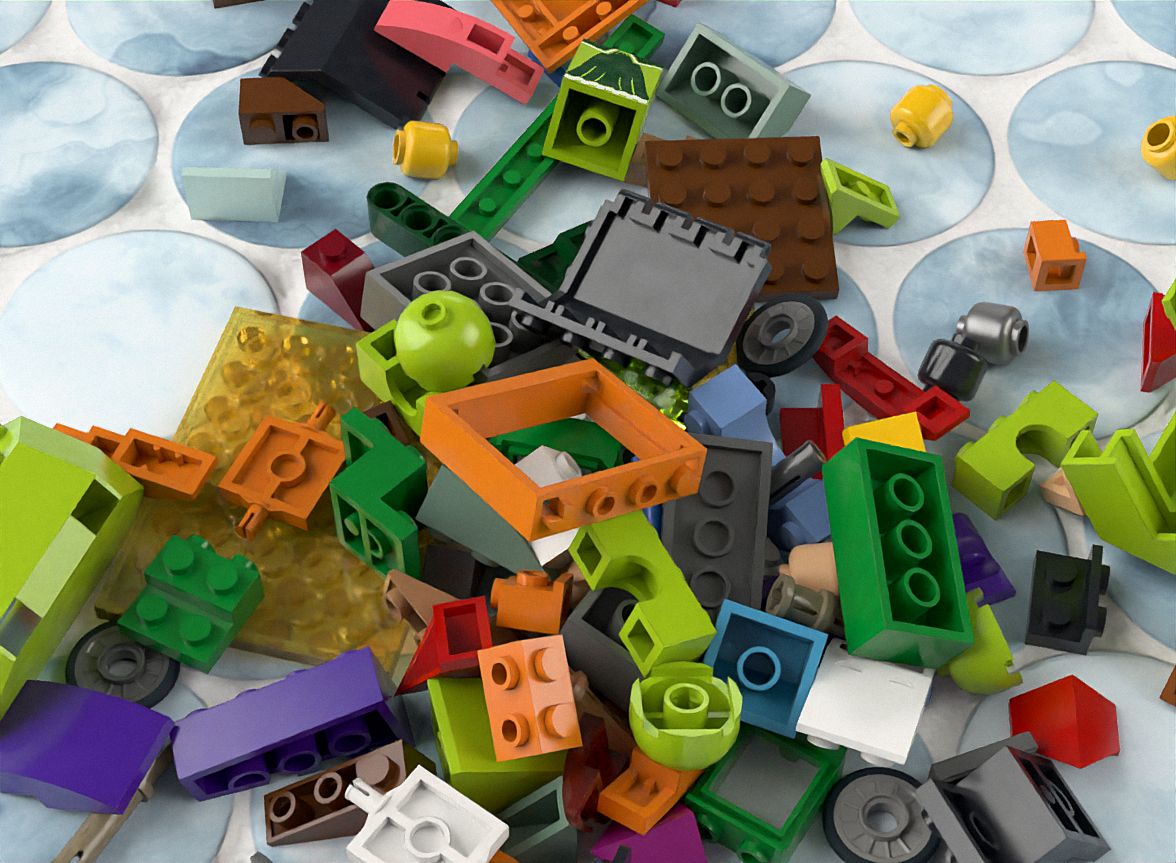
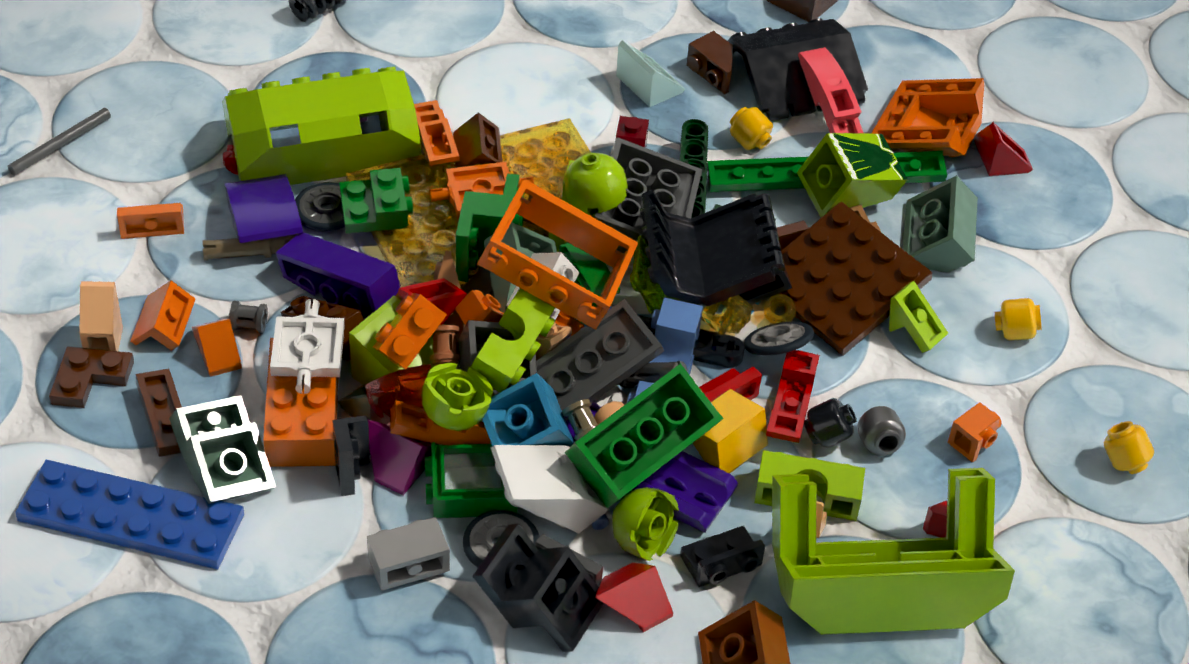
camera: 50 degrees right, 5 degrees down
(201, 424) = (478, 142): none -> reddish brown panel

